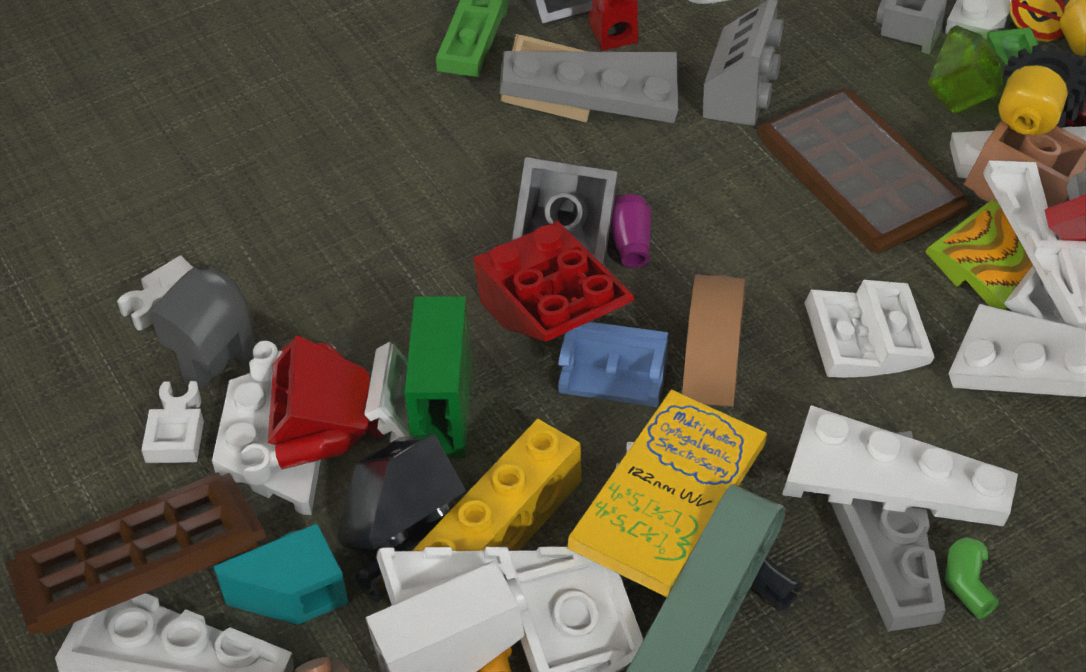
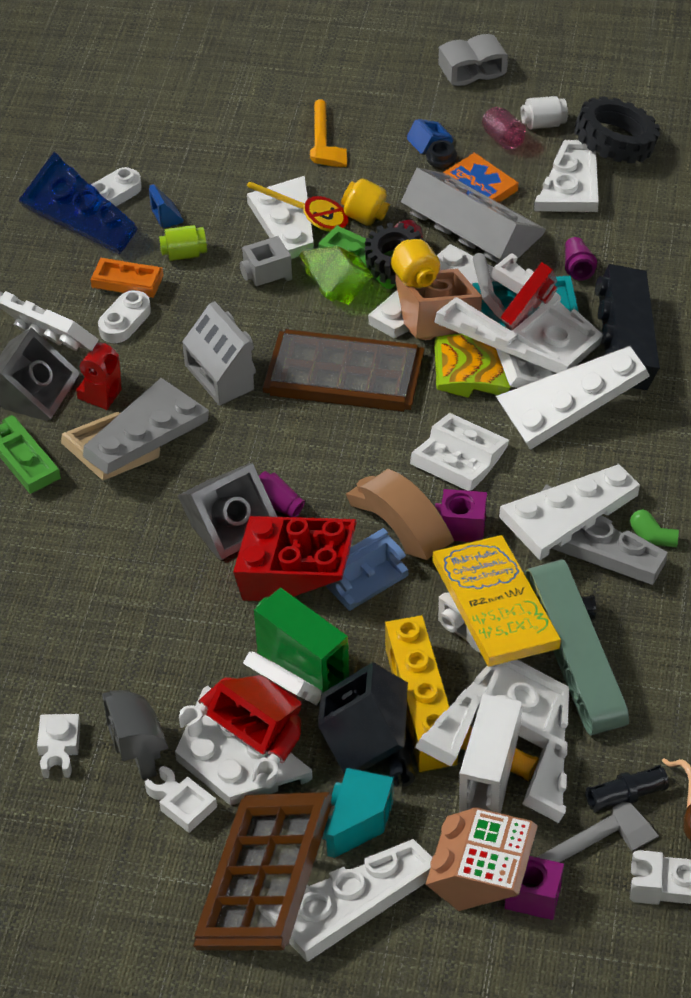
camera: 50 degrees left, 0 degrees up
(776, 389) = (464, 514): none -> magenta brick

